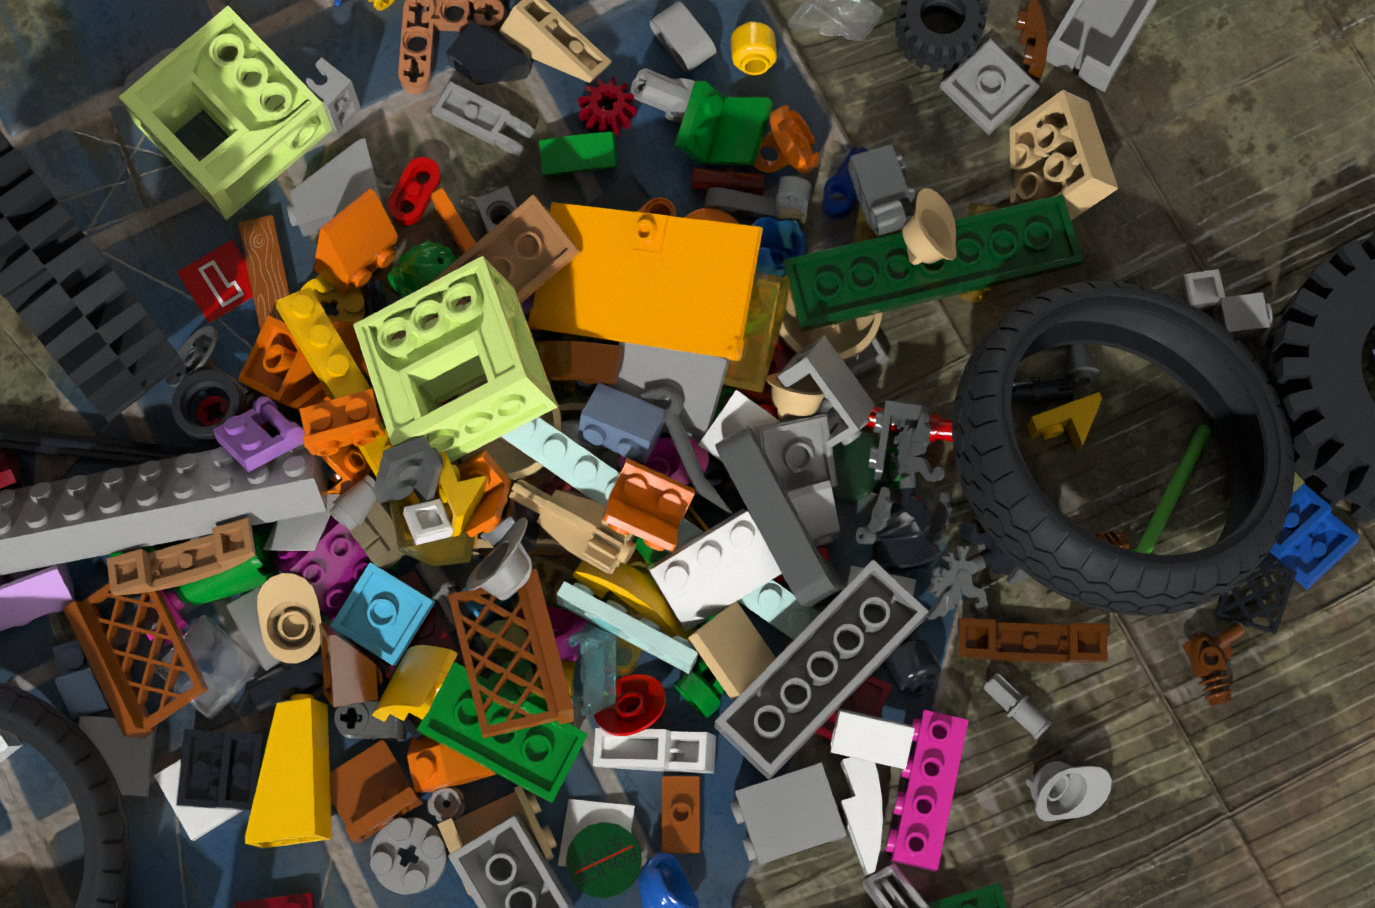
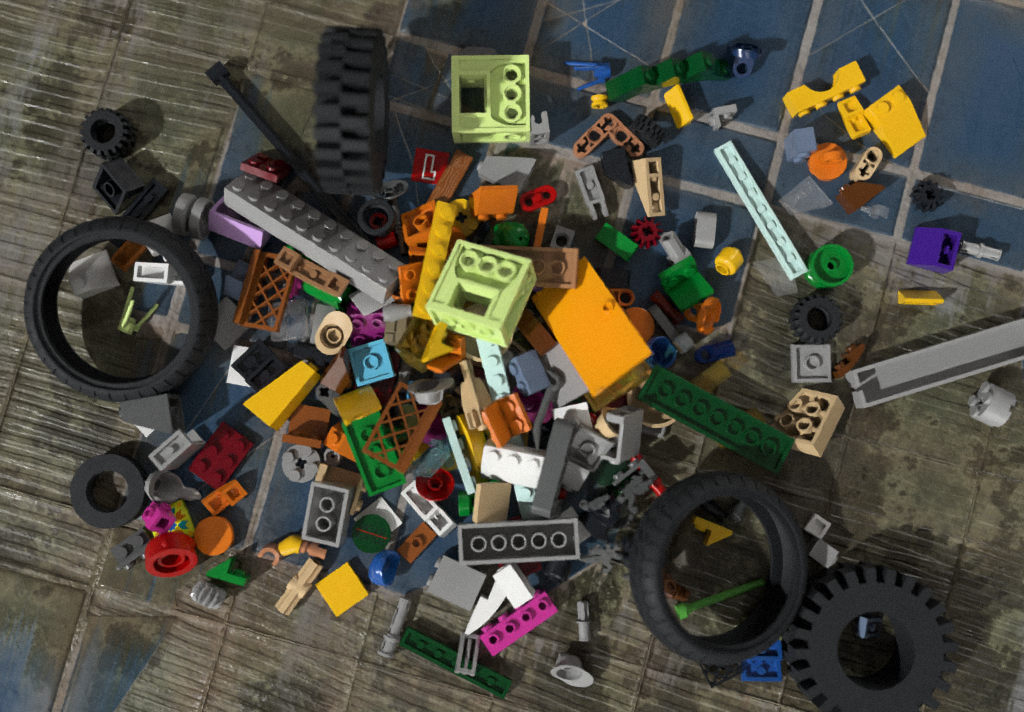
camera: 45 degrees right, 10 degrees up
(250, 442) = (376, 250): medium lavender plate -> none
(341, 423) = (417, 276): orange bracket -> none
(407, 469) = (424, 319): dark grey bracket -> none
(428, 521) = (416, 346): white tile -> none
(882, 189) = (723, 371): dark grey hinge -> none
(931, 230) = (726, 408): tan piece -> none
(1032, 642) = (613, 602): reddish brown slope -> none
(1209, 660) = (674, 674): reddish brown piece -> none

